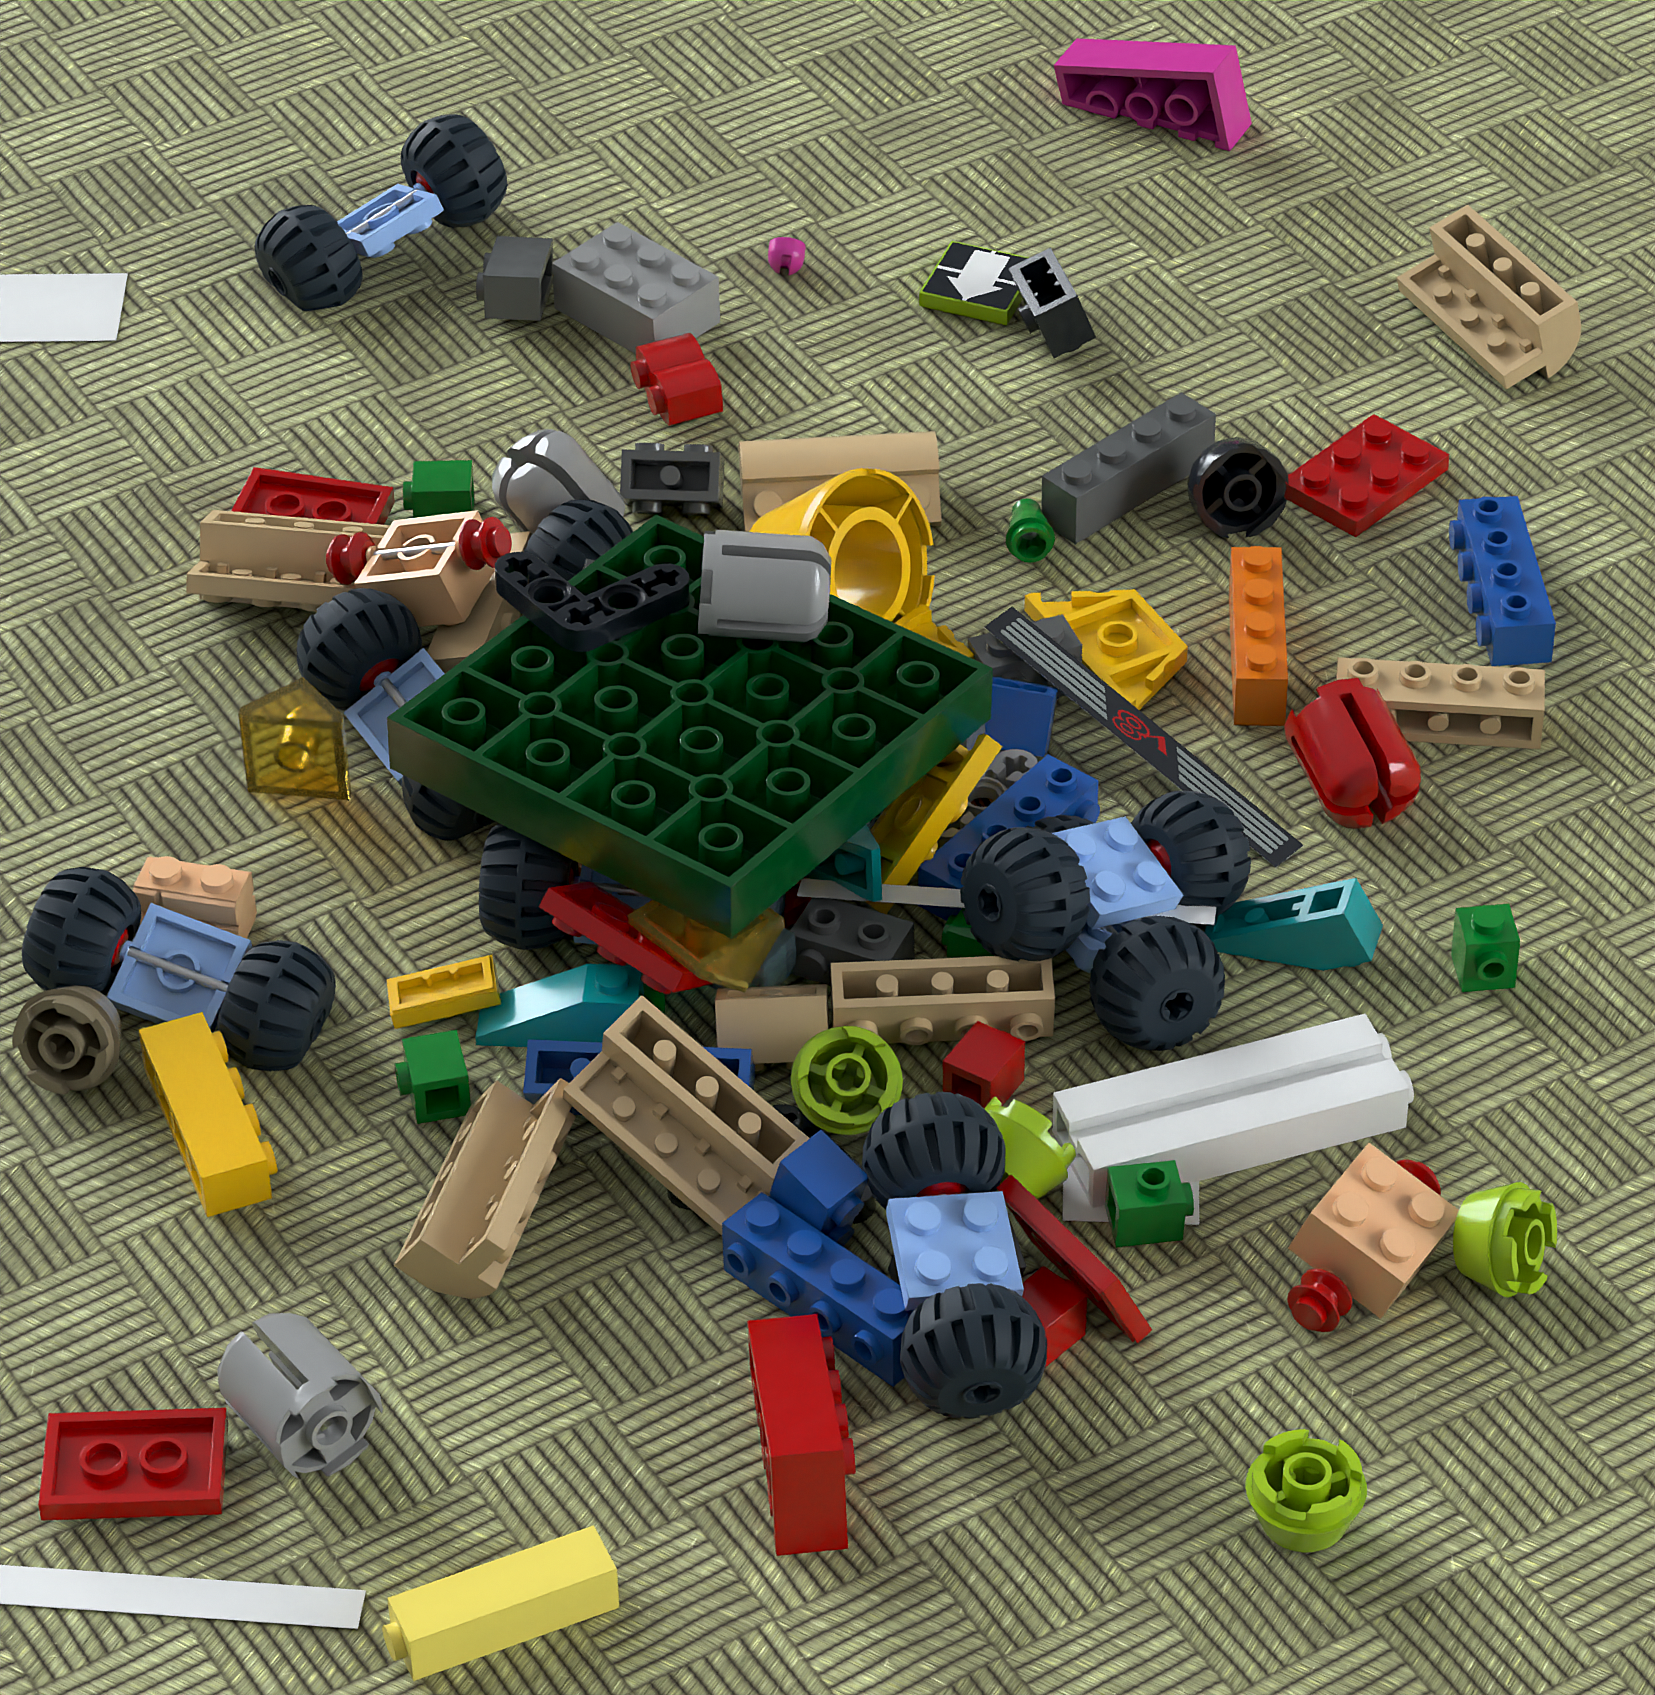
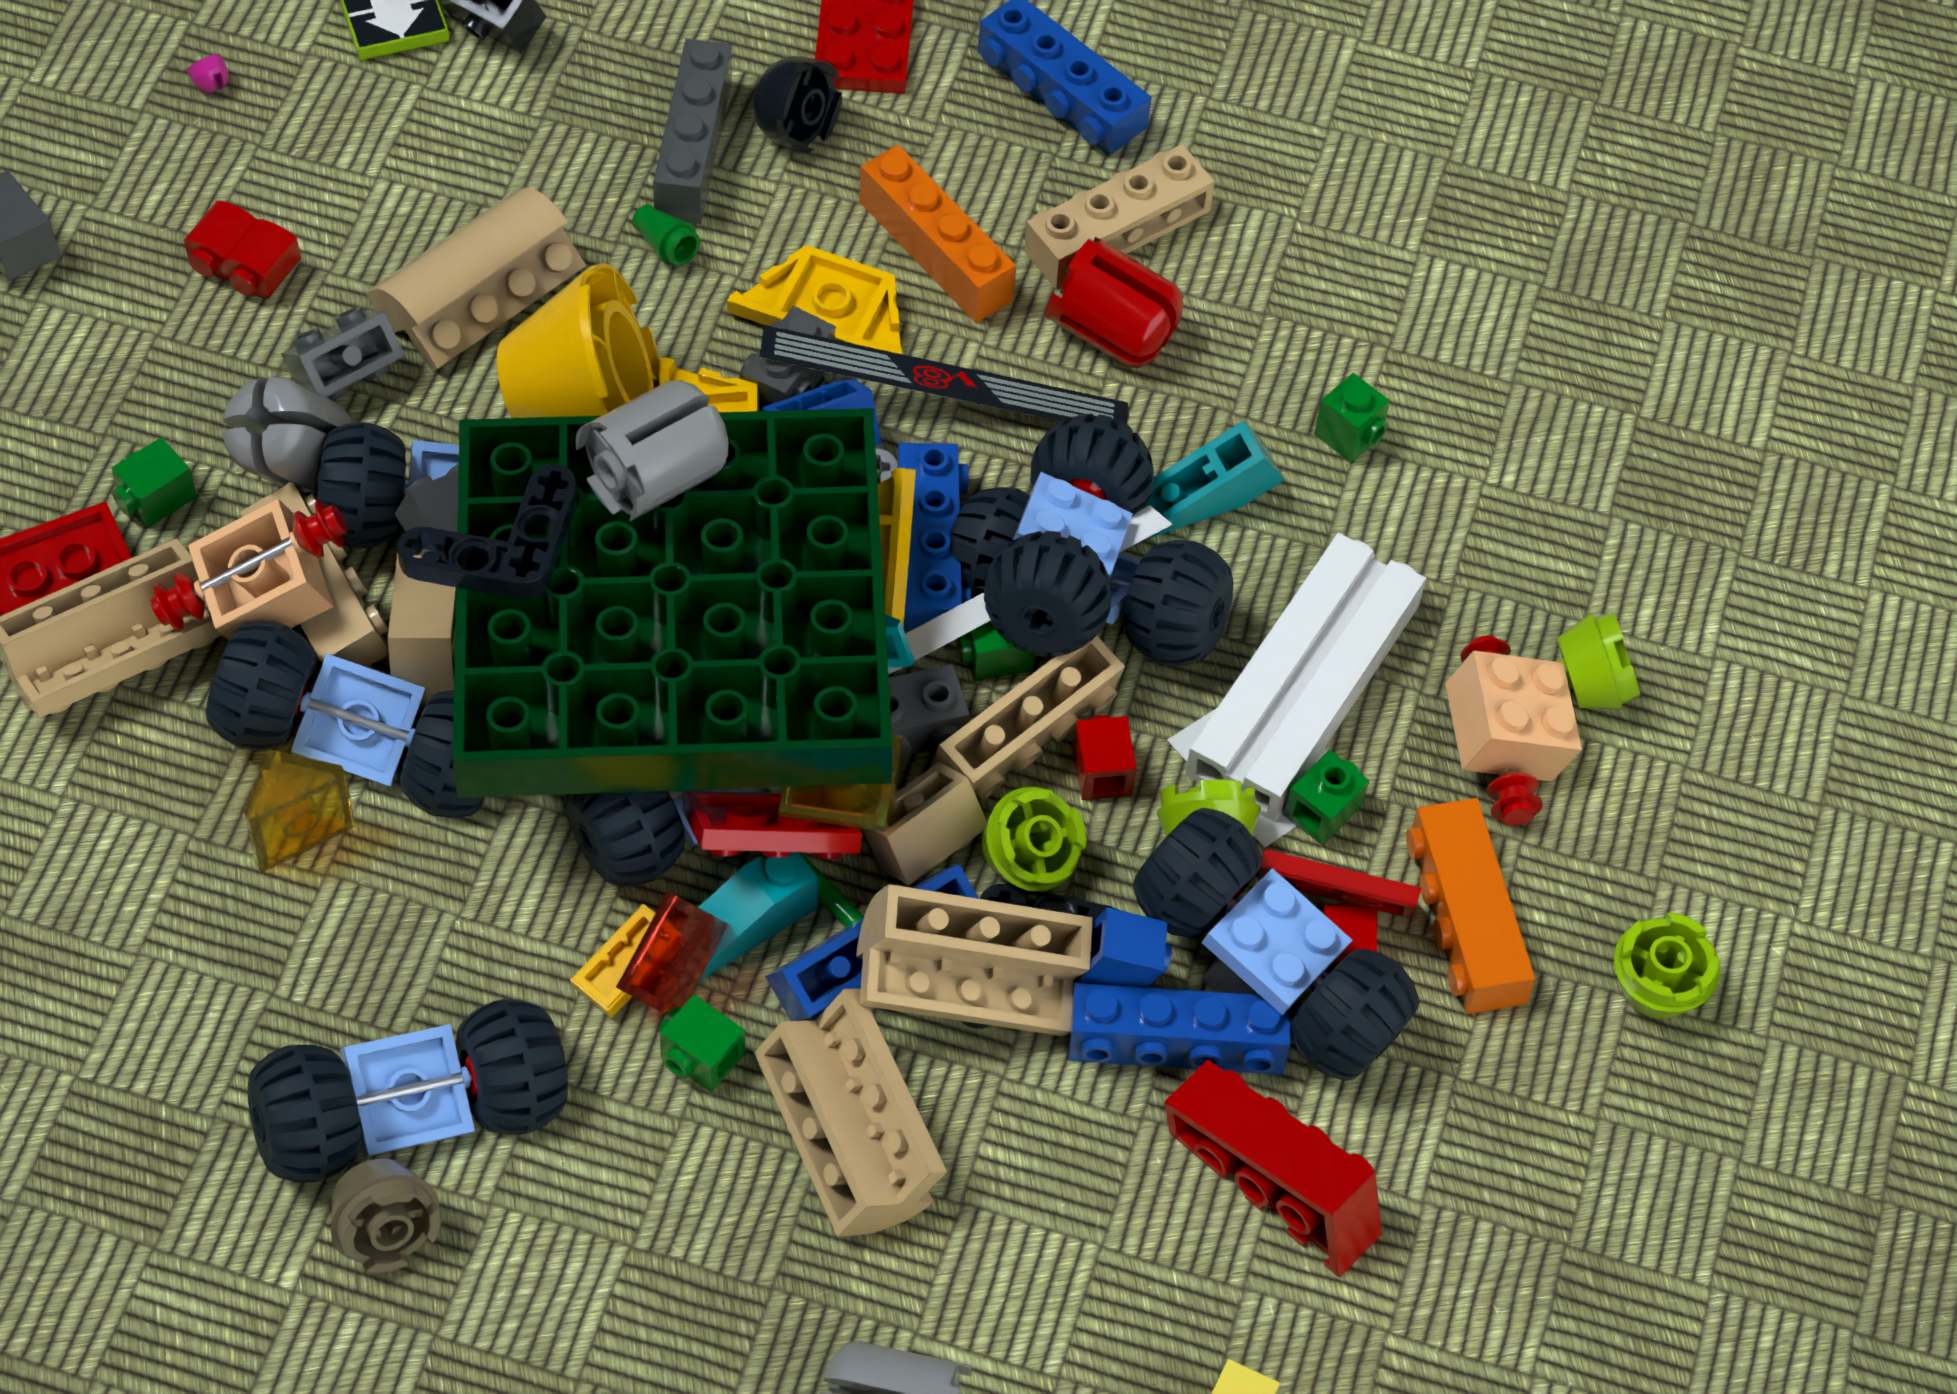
camera: 45 degrees left, 15 degrees up
(199, 891) = (348, 1009): light nougat brick -> none
(207, 1114) = (552, 1203): yellow brick -> none
(471, 992) = (672, 954): none -> clear red brick
(634, 289) = (123, 182): light grey brick -> none
(1186, 1354) = (1470, 906): none -> orange brick

